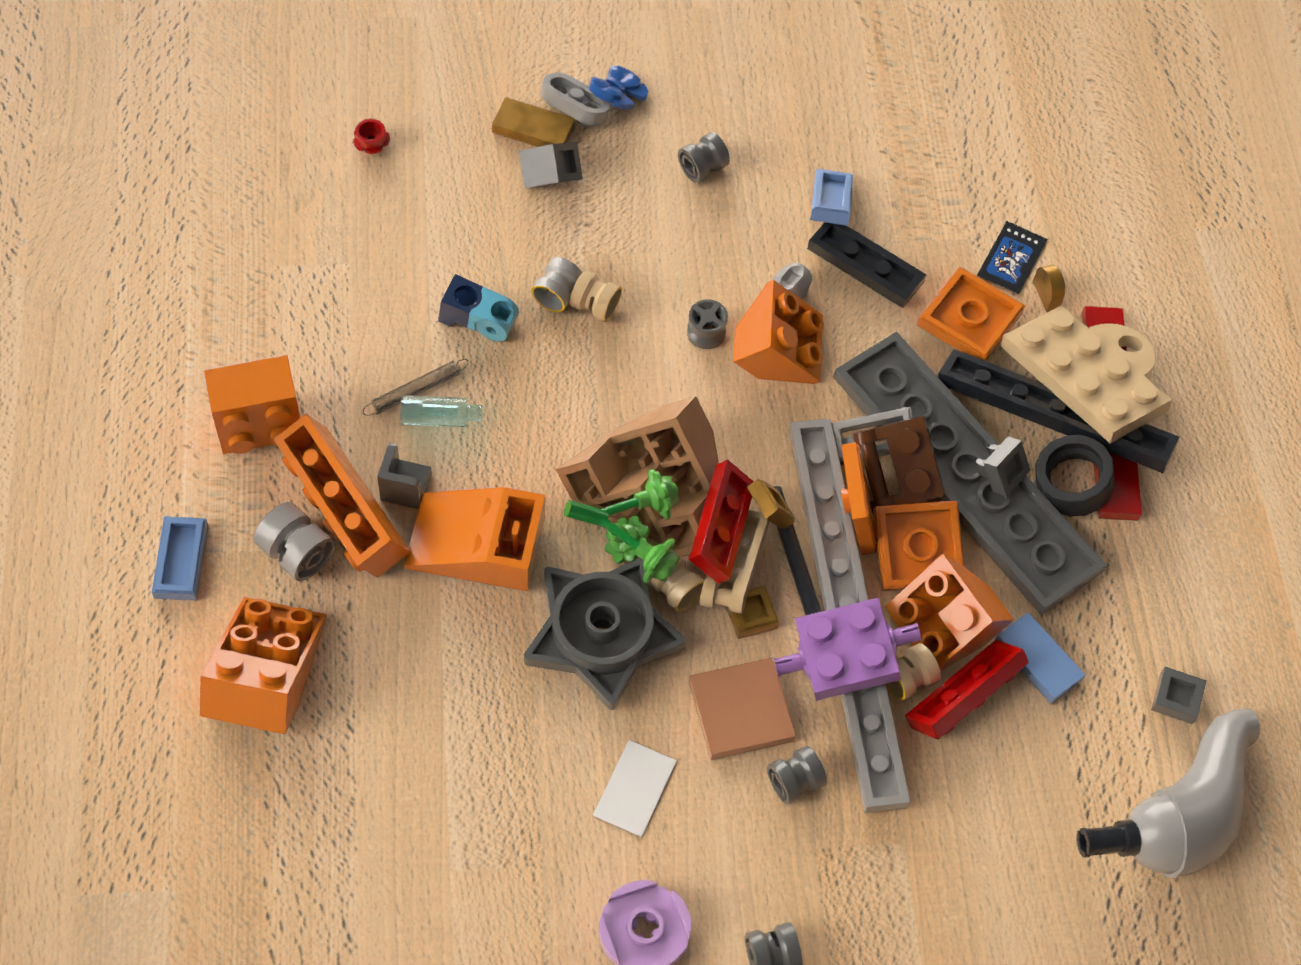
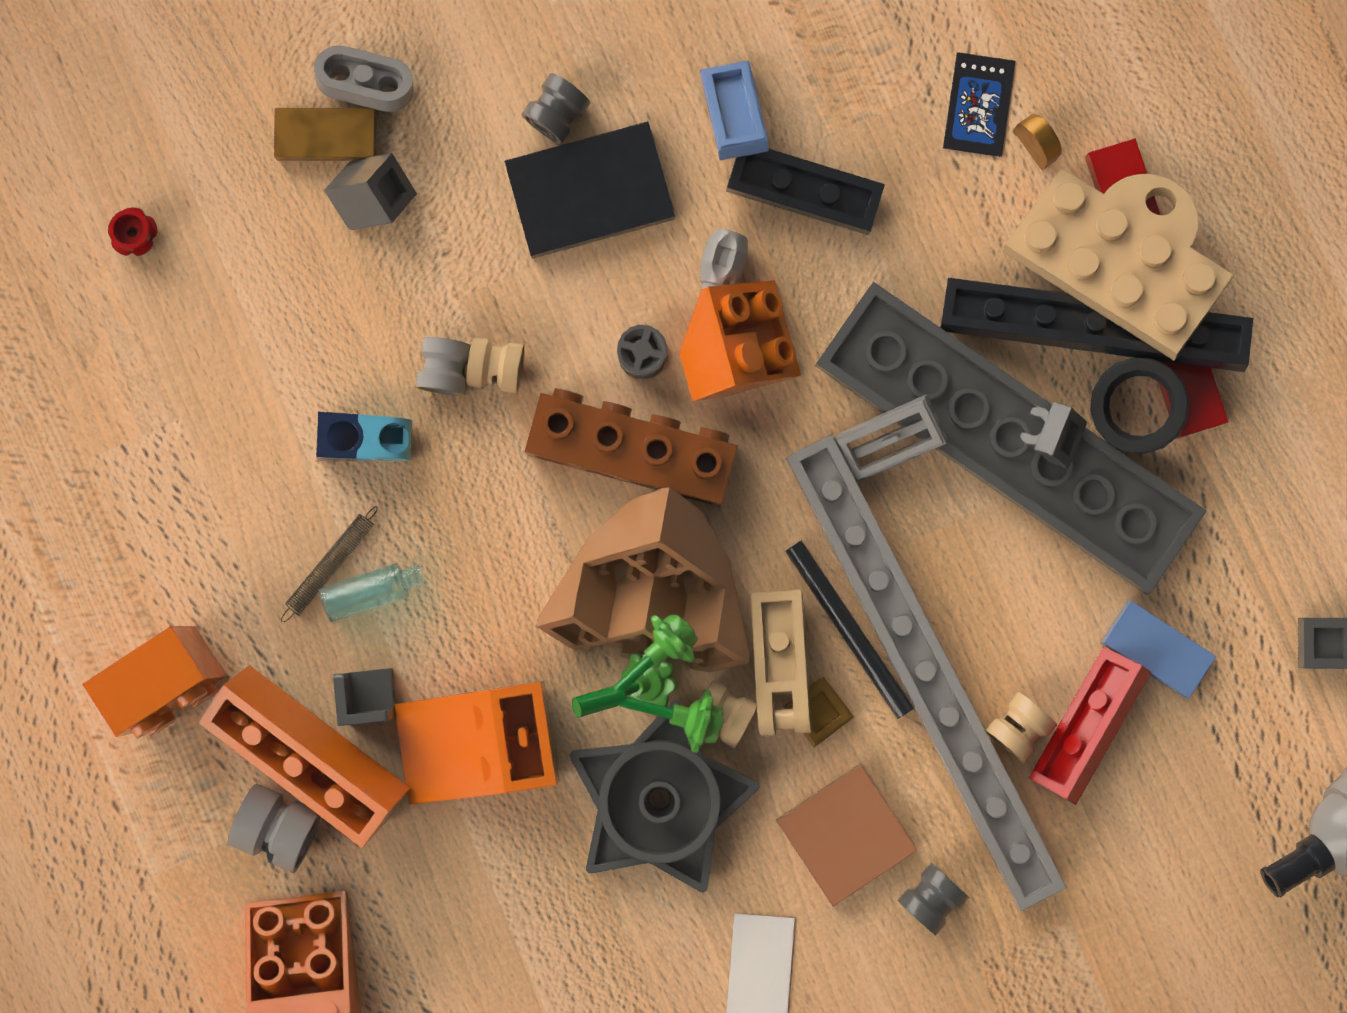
camera: 15 degrees left, 25 degrees up
(180, 558) = (153, 884): medium blue tile -> none
(619, 81) = (410, 25): blue piece -> none
(666, 374) = (630, 448): none -> dark orange brick
(708, 216) = (589, 190): none -> black tile
(722, 522) = (754, 633): red plate -> none
(771, 504) = (800, 581): pearl gold tile -> none
(847, 649) = (945, 737): medium lavender plate -> none
(857, 499) = (899, 541): orange plate -> none
(912, 461) = (946, 465): reddish brown plate -> none
(913, 538) = (984, 562): orange plate -> none
(951, 609) = (1045, 641): orange slope -> none
(971, 315) = (955, 218): orange plate -> none

